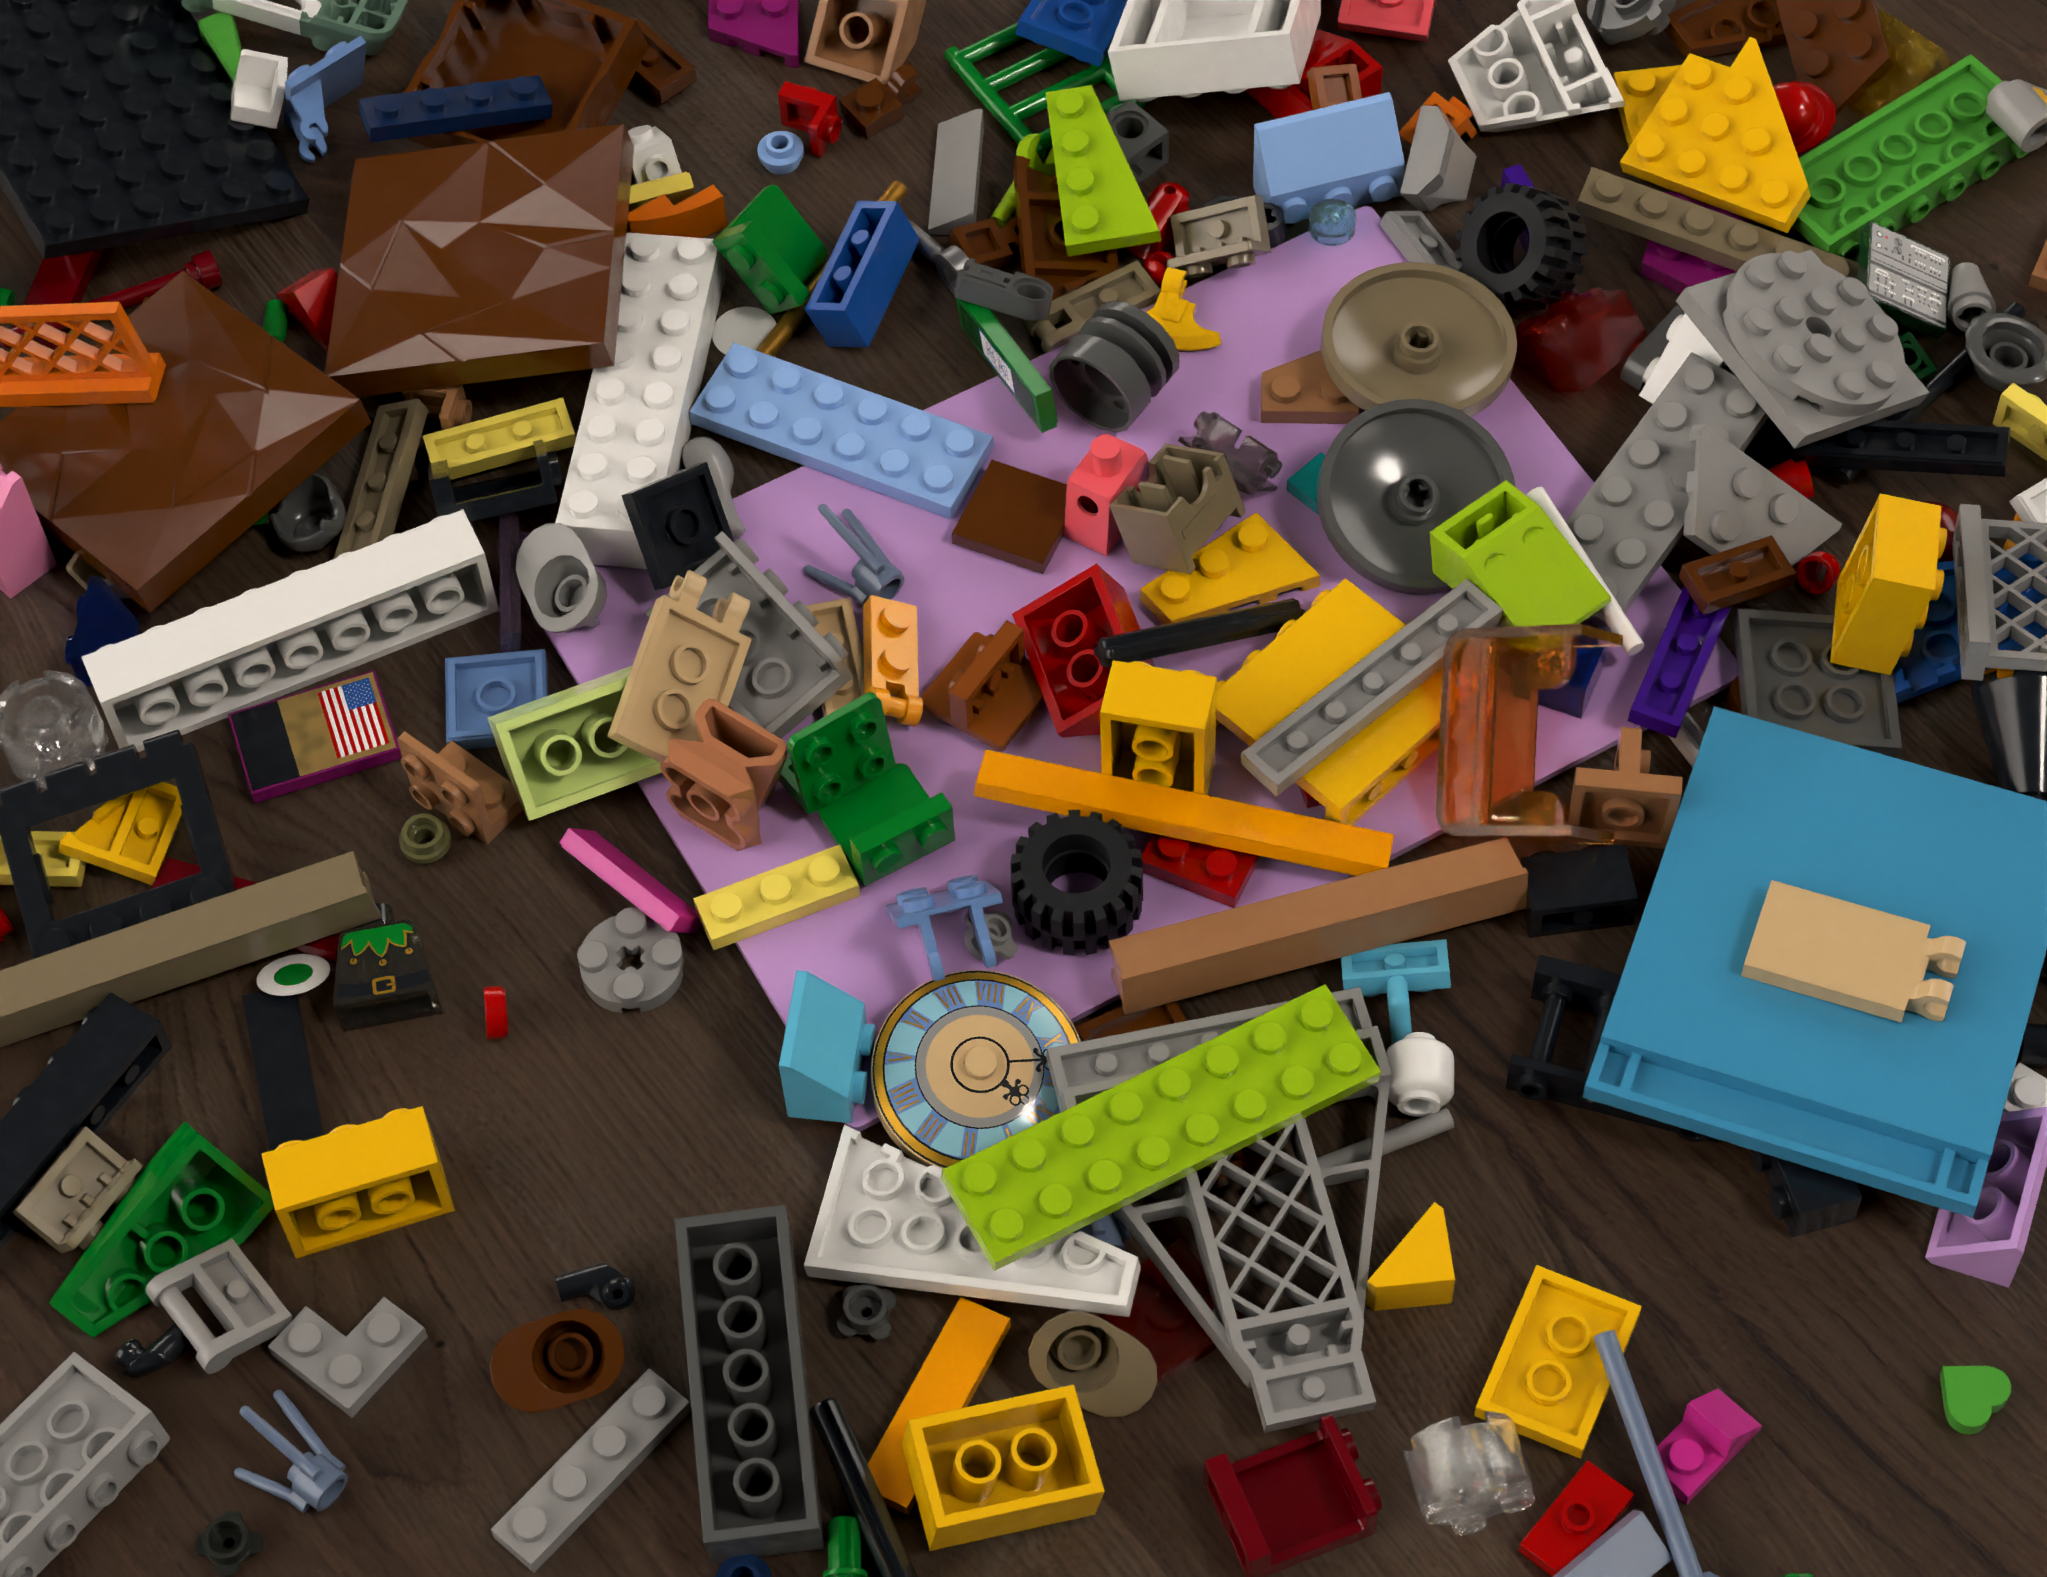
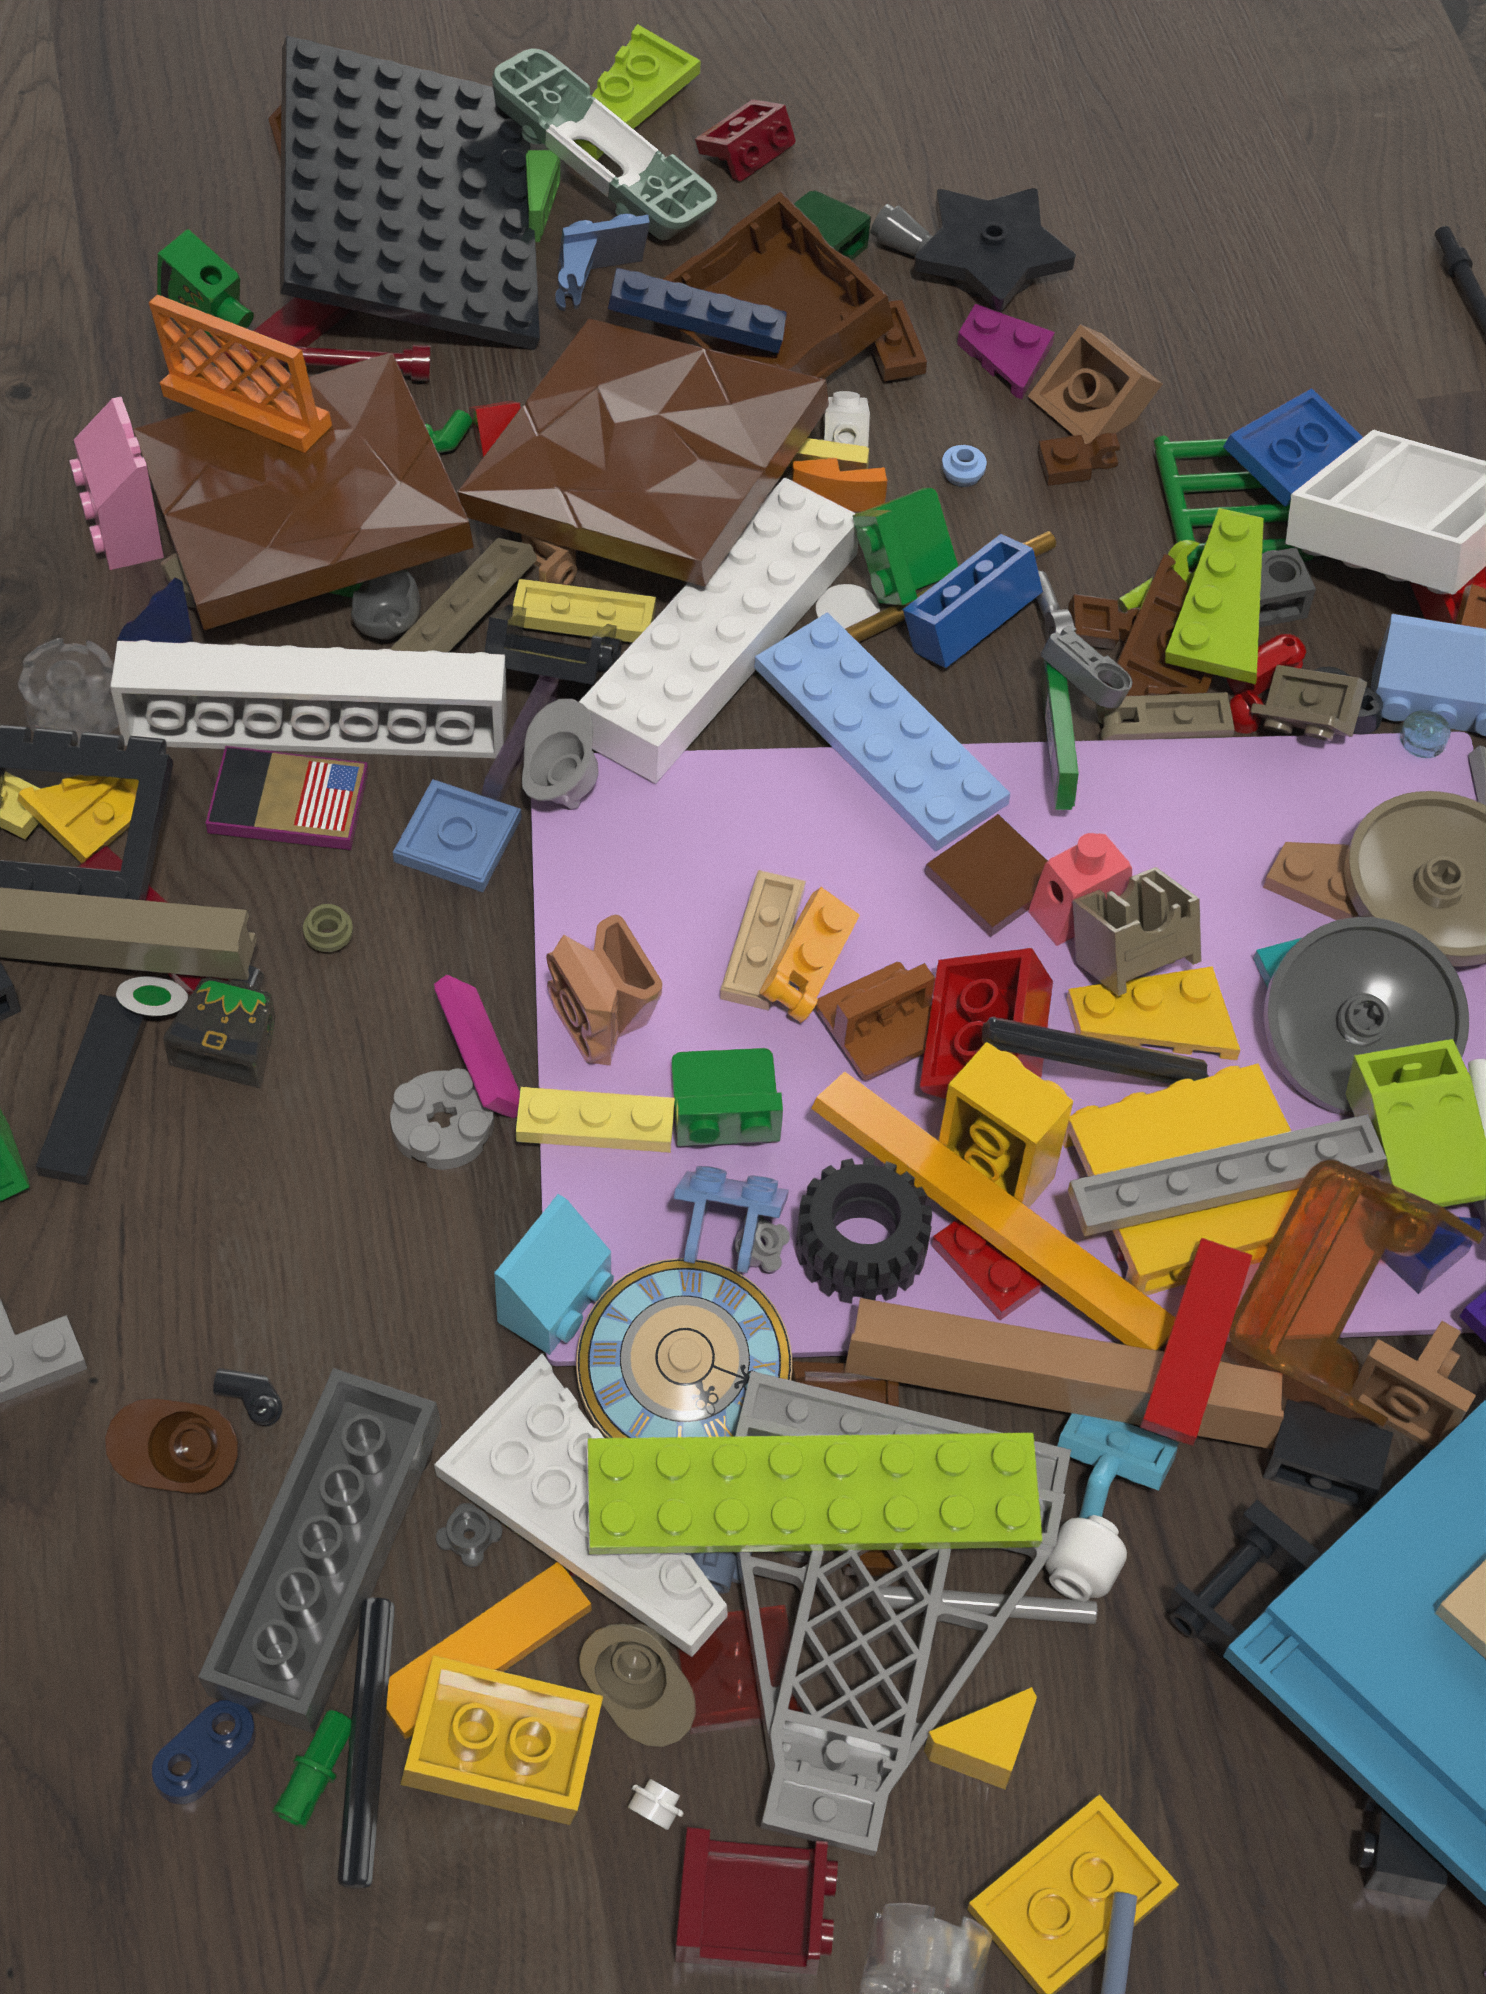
camera: 20 degrees right, 0 degrees up
(259, 88) = (542, 228): white panel -> none
(357, 1181) = (94, 1202): yellow brick -> none
(460, 787) = (384, 897): medium nougat bracket -> none
(495, 1012) = (299, 1108): red tile -> none
(561, 748) = (497, 903): yellowish green slope -> none
(591, 1470) = (152, 1559): light grey plate -> none
(677, 522) = (686, 751): black tile -> none
(679, 666) = (614, 872): tan tile -> none
(722, 471) = (749, 718): light grey piece -> none
(788, 661) = (694, 882): light grey bracket -> none
(810, 112) = (1007, 442): red bracket -> none
(838, 754) = (711, 1015): green bracket -> none
(873, 572) = (835, 870): sand blue plant -> none
(956, 172) = (1109, 547): light grey slope -> none
(1114, 366) = (1149, 777): dark grey wheel -> none
(1162, 1458) = (656, 1803): none -> white plate
(1178, 315) = (1228, 760): yellow piece -> none
(1248, 464) = (1224, 921): clear smoke hinge -> none
(1422, 842) = (1196, 1342): none -> red tile

